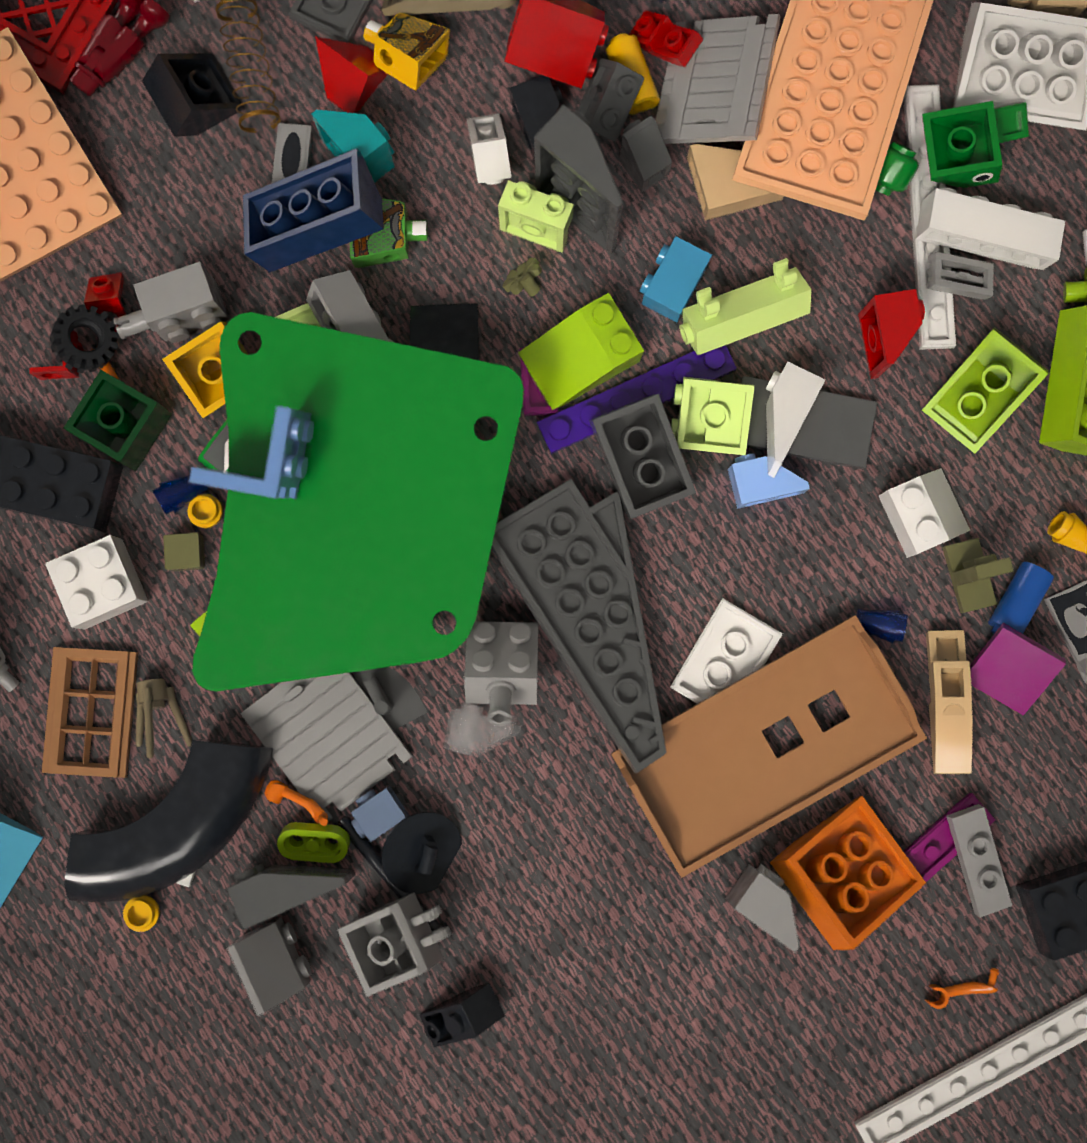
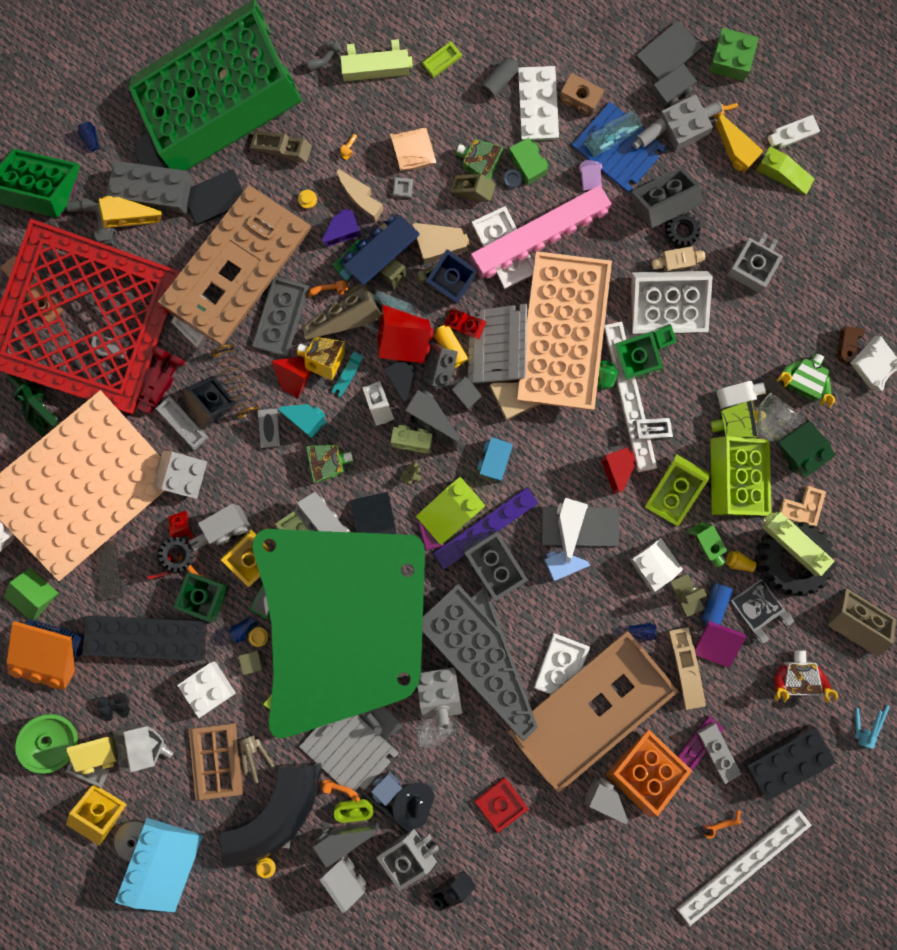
camera: 10 degrees left, 0 degrees up
(120, 202) = (180, 474): none -> light grey brick
(143, 121) = (182, 423): none -> light grey plate
(284, 463) = (302, 613): medium blue bracket -> none
(311, 212) = (287, 462): dark blue slope -> none
(446, 90) = (348, 373): none -> teal piece
(576, 880) = (501, 804): none -> red tile
(712, 415) = (529, 534): yellowish green plate -> none
(746, 309) = (537, 471): yellowish green brick -> none
(990, 229) = (663, 400): white brick -> none
(1025, 488) = (708, 542): none -> bright green torso

